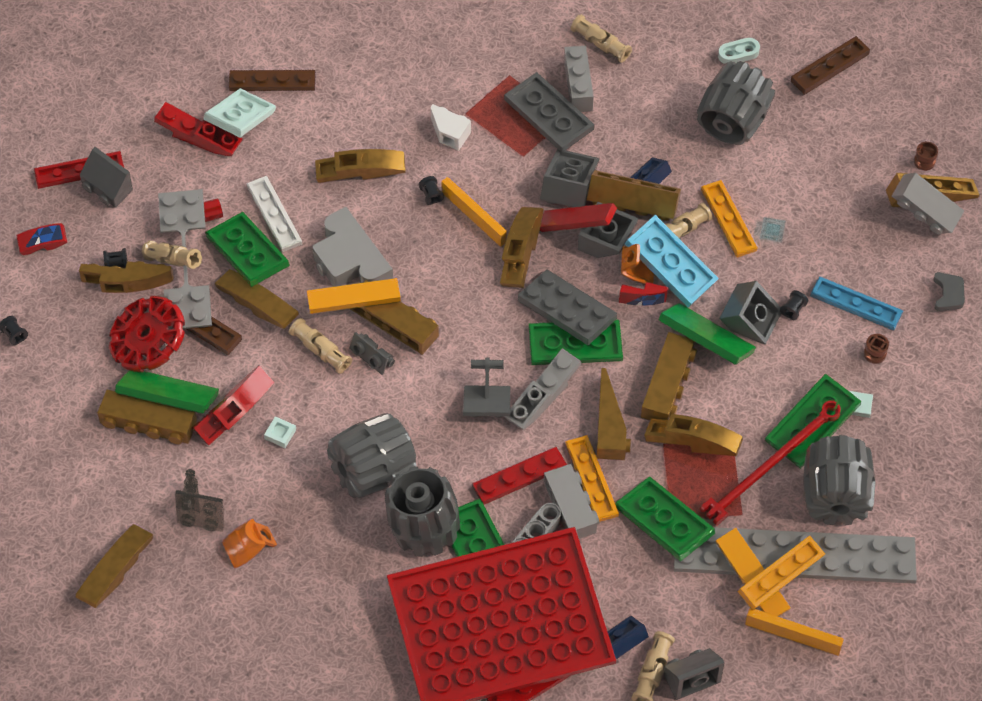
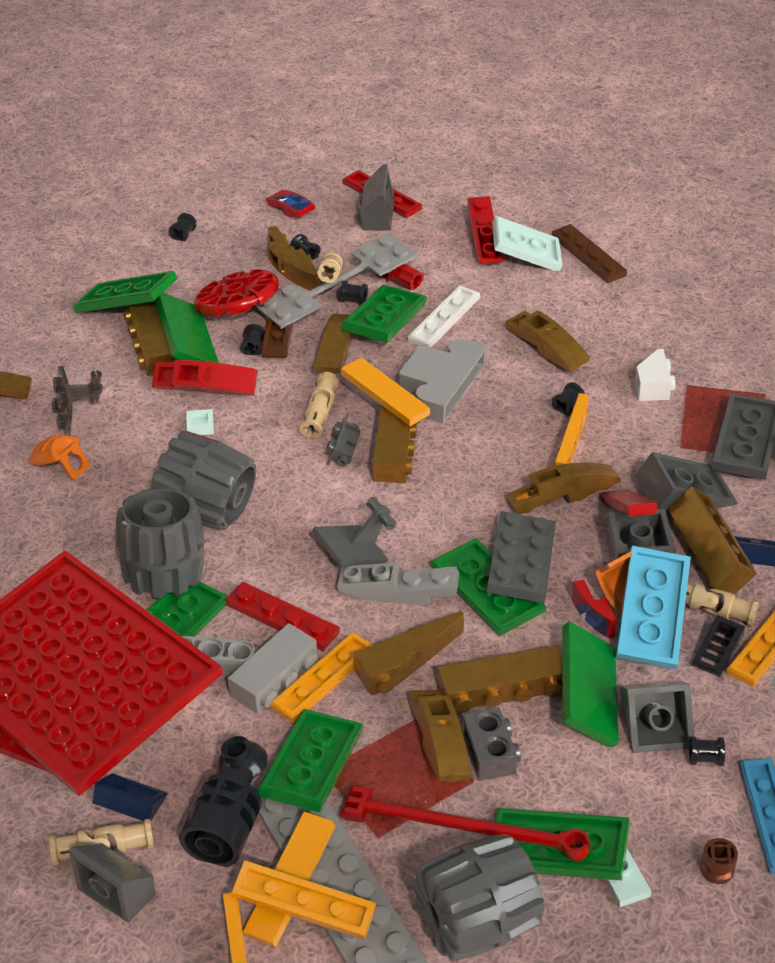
camera: 60 degrees right, 15 degrees down
(87, 409) = (125, 291): none -> green tile
(207, 254) = (353, 292): none -> black bush
(212, 356) = (249, 341): none -> black bush
(678, 580) = (225, 805): none -> black cylinder
(702, 236) = (727, 628): none -> black slope
(717, 409) = (490, 743): none -> flat silver brick

